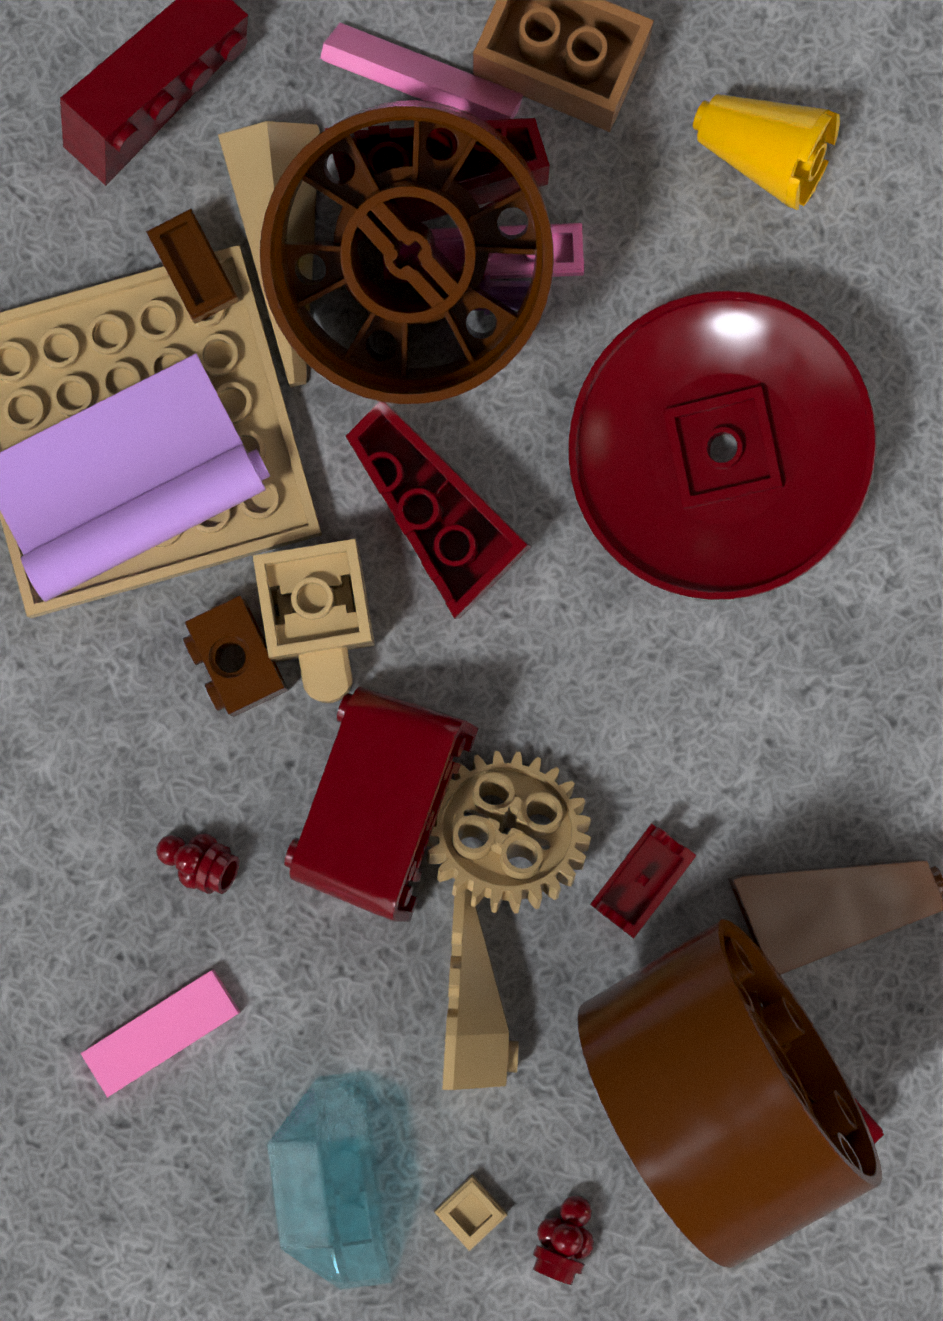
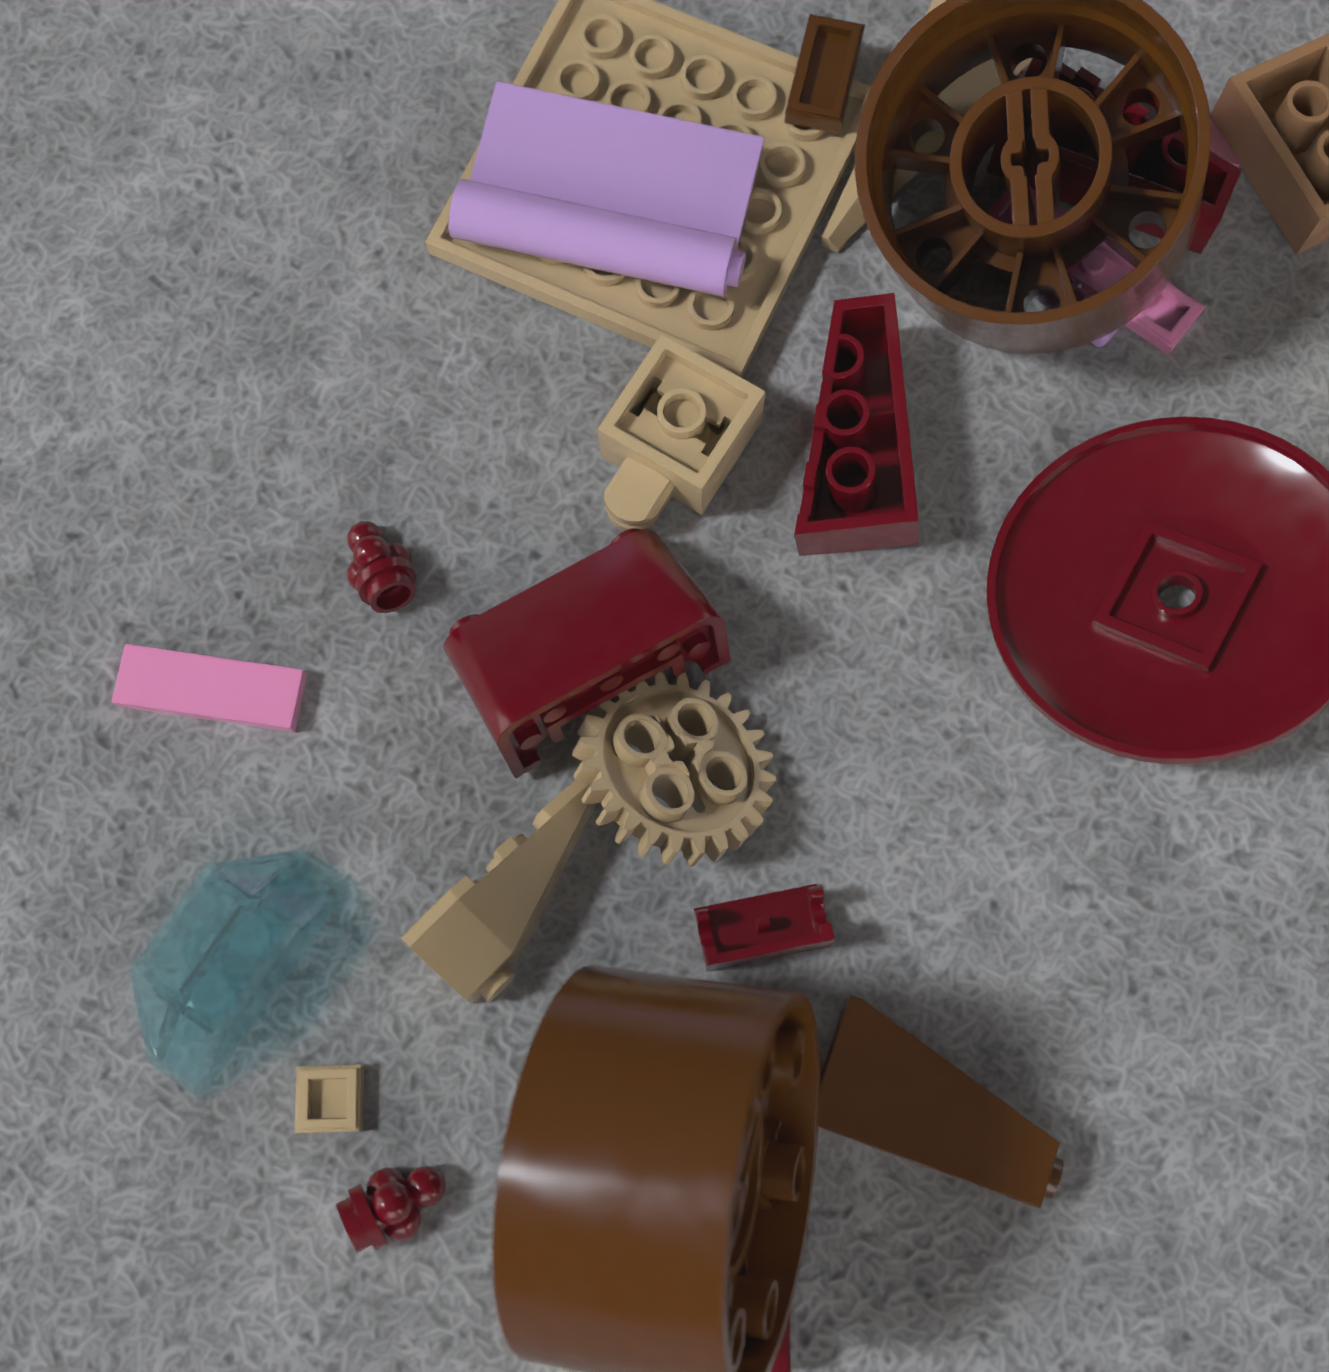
camera: 40 degrees right, 10 degrees down
(226, 627) = (574, 386): reddish brown brick -> none

